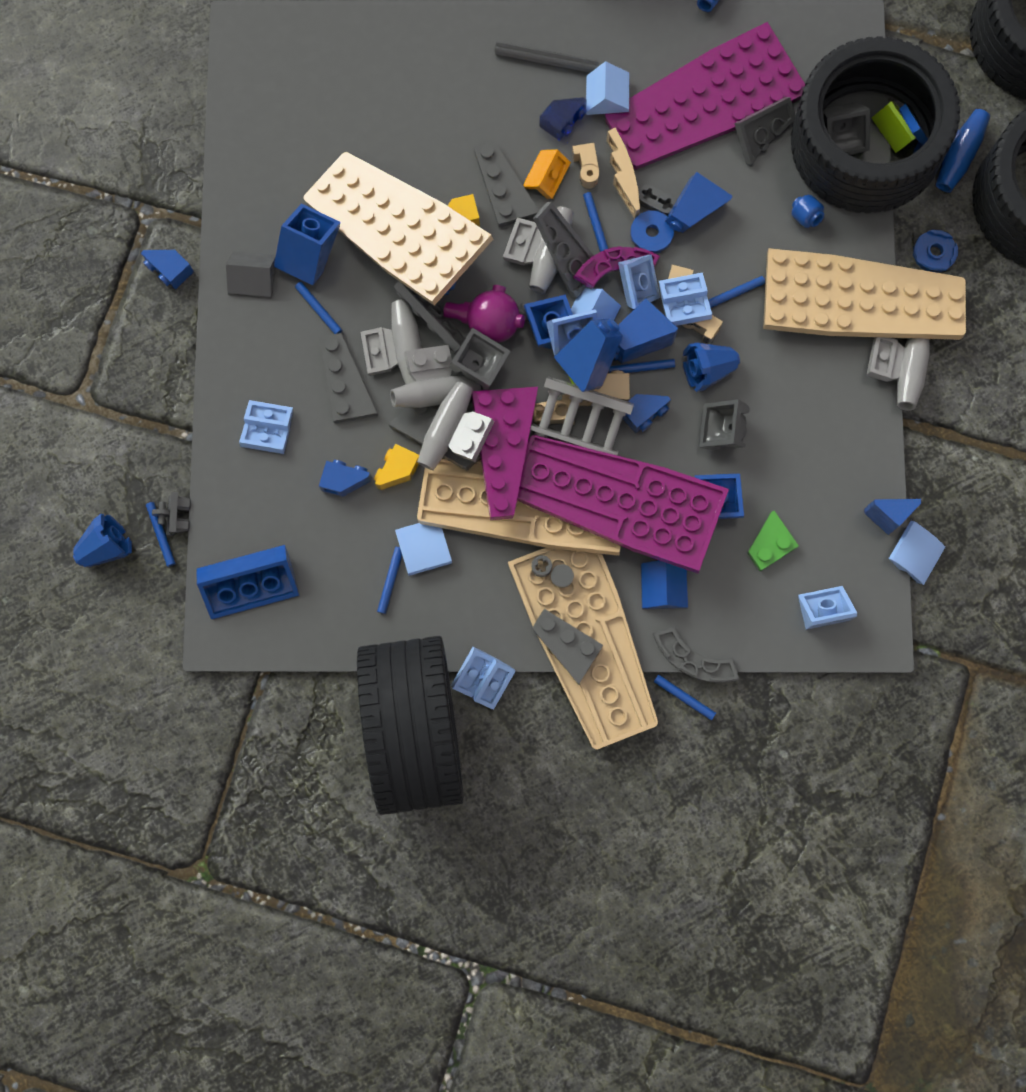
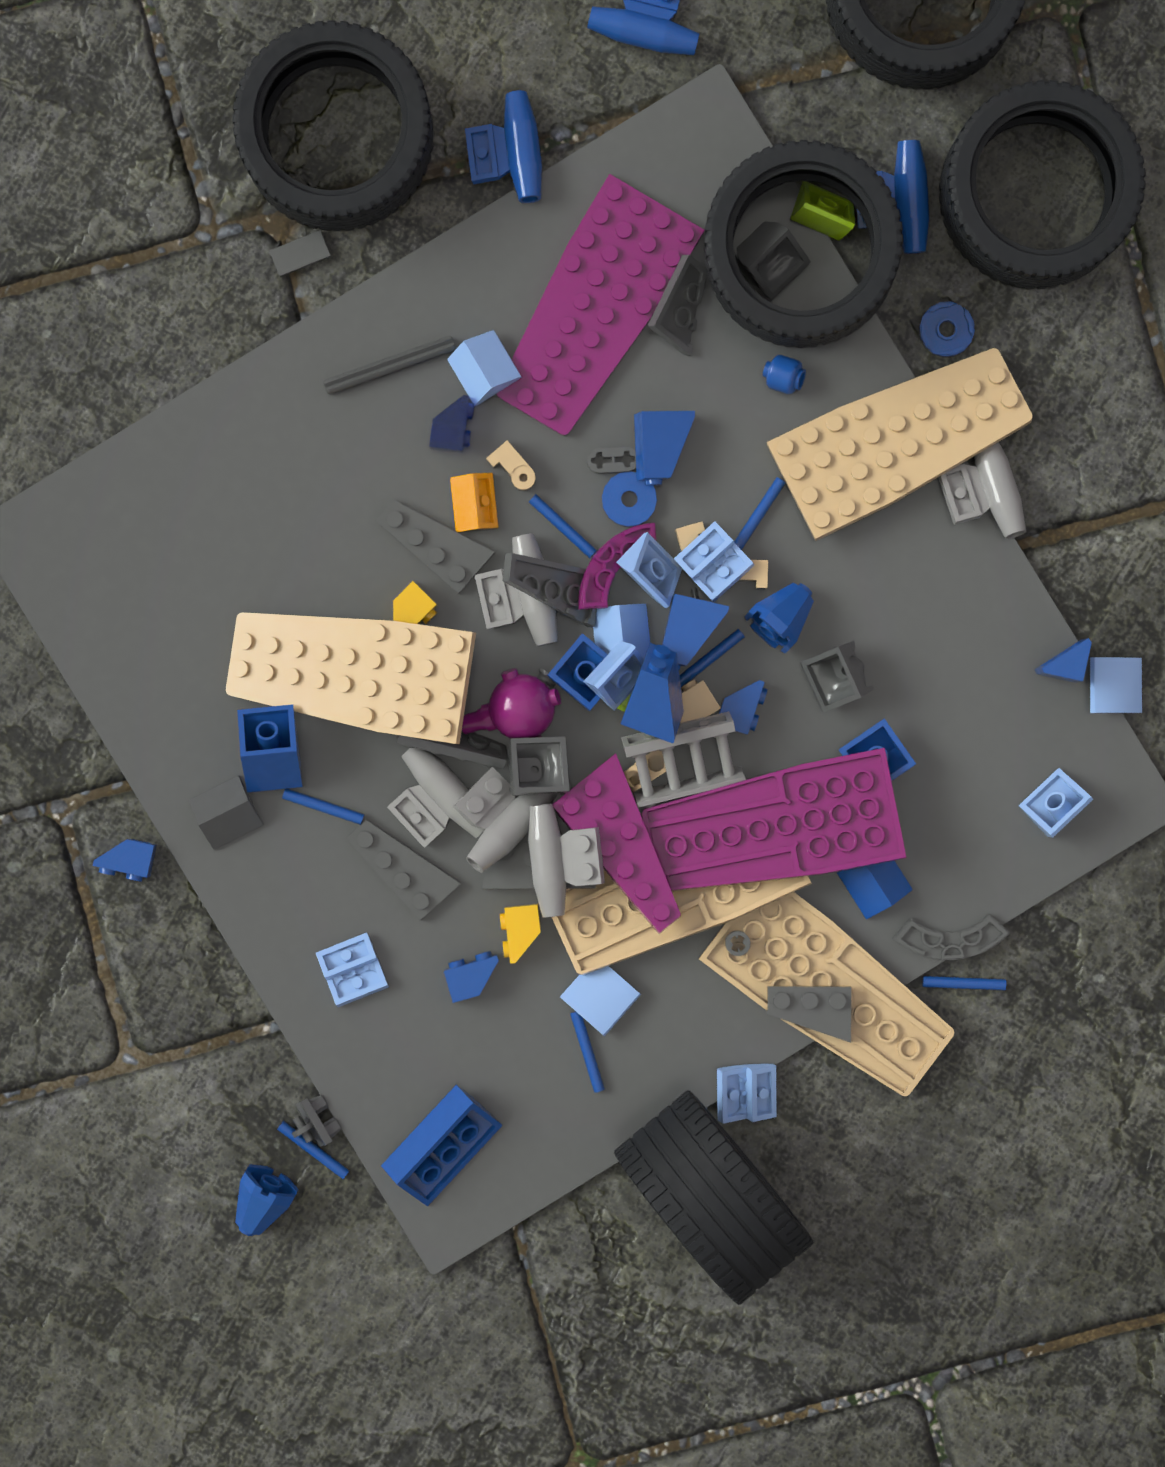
camera: 30 degrees left, 10 degrees up
(562, 576) = (765, 940): dark grey tile -> none
(625, 179) = (566, 459): tan slope -> none
(771, 543) = (959, 767): bright green wing -> none
(913, 124) = (844, 211): blue tile -> none

